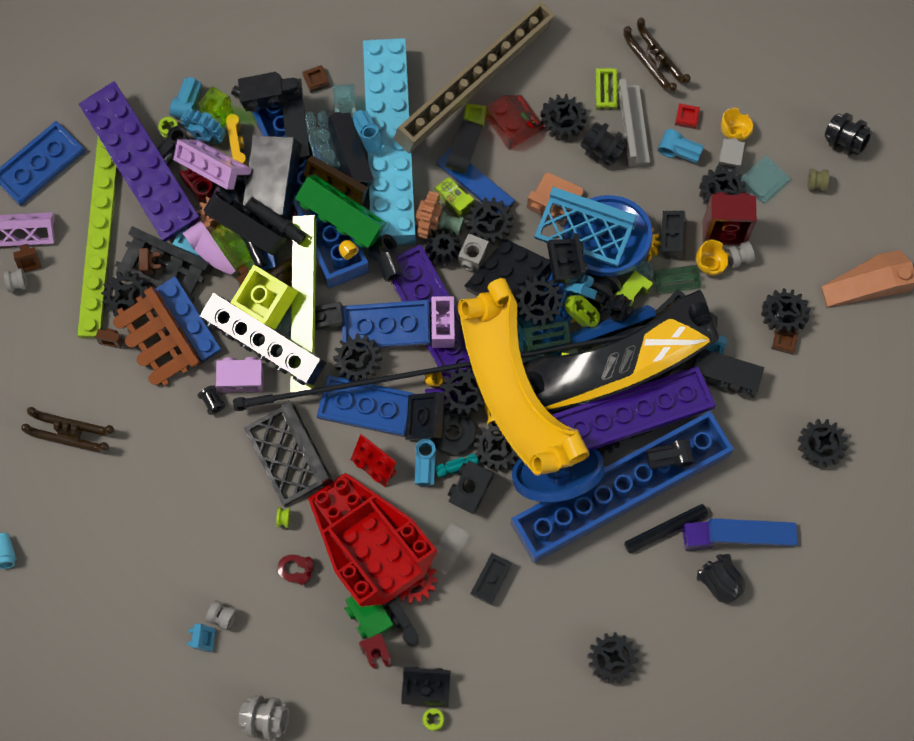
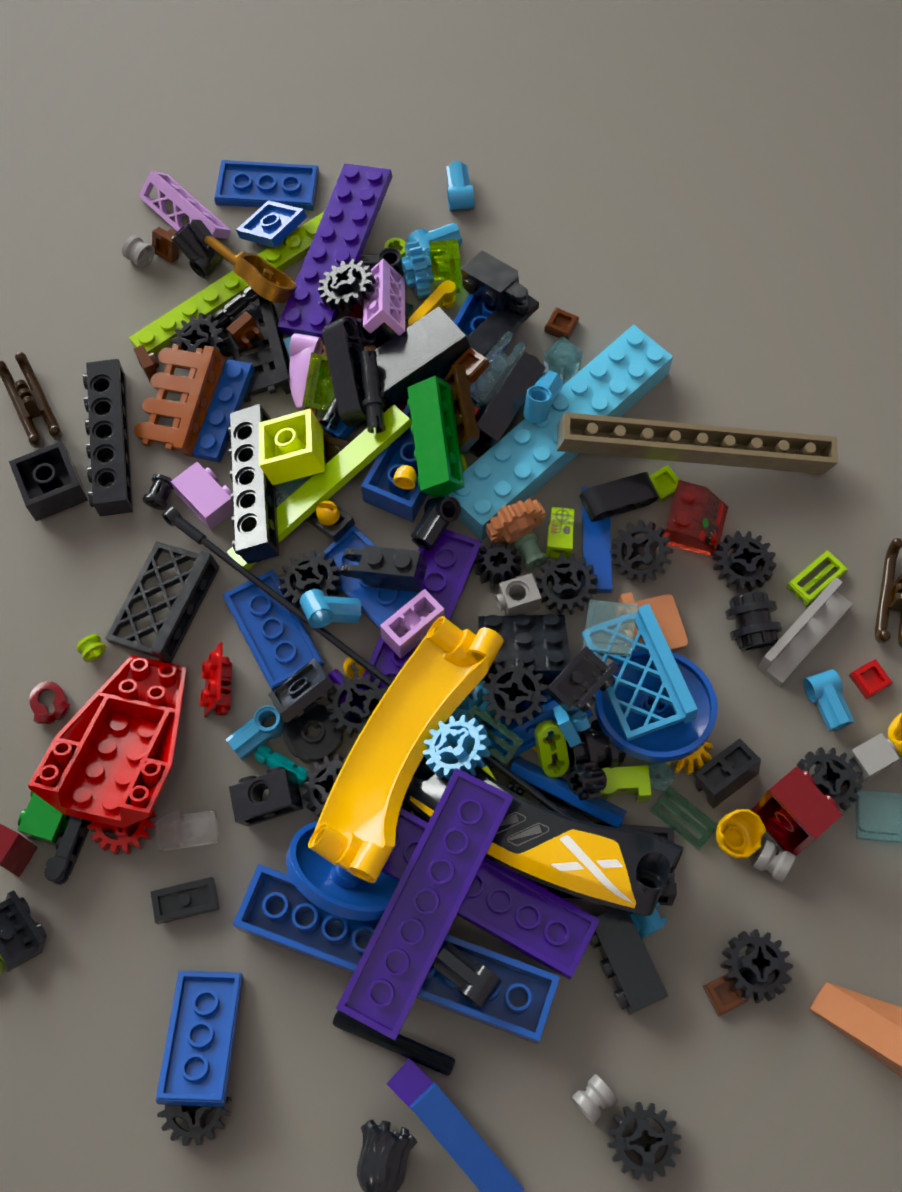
camera: 50 degrees right, 5 degrees down
(59, 243) = (201, 256): none -> black piece
(77, 183) = (271, 224): none -> blue plate
(98, 367) = (117, 497): none -> black brick
(120, 219) = (255, 270): none -> pearl gold piece
(123, 251) = (236, 305): none -> black axle
(143, 458) = (48, 481): none -> black brick
(164, 55) = (459, 190): none -> dark azure piece
(181, 175) = (346, 285): none -> black gear
(310, 148) = (474, 363): none -> reddish brown tile
(326, 315) = (325, 514): none -> yellow hinge
(390, 362) = (323, 609): none -> dark azure piece
(394, 308) = (386, 567): none -> black hinge
(498, 164) = (633, 558): none -> black gear
(539, 348) = (458, 746): none -> dark azure gear
(547, 218) = (610, 627): none -> clear light blue piece
(579, 625) = (200, 1039): none -> blue tile
(616, 442) = (425, 904): none -> dark purple plate
(782, 450) = (595, 1098): none -> light grey wheel

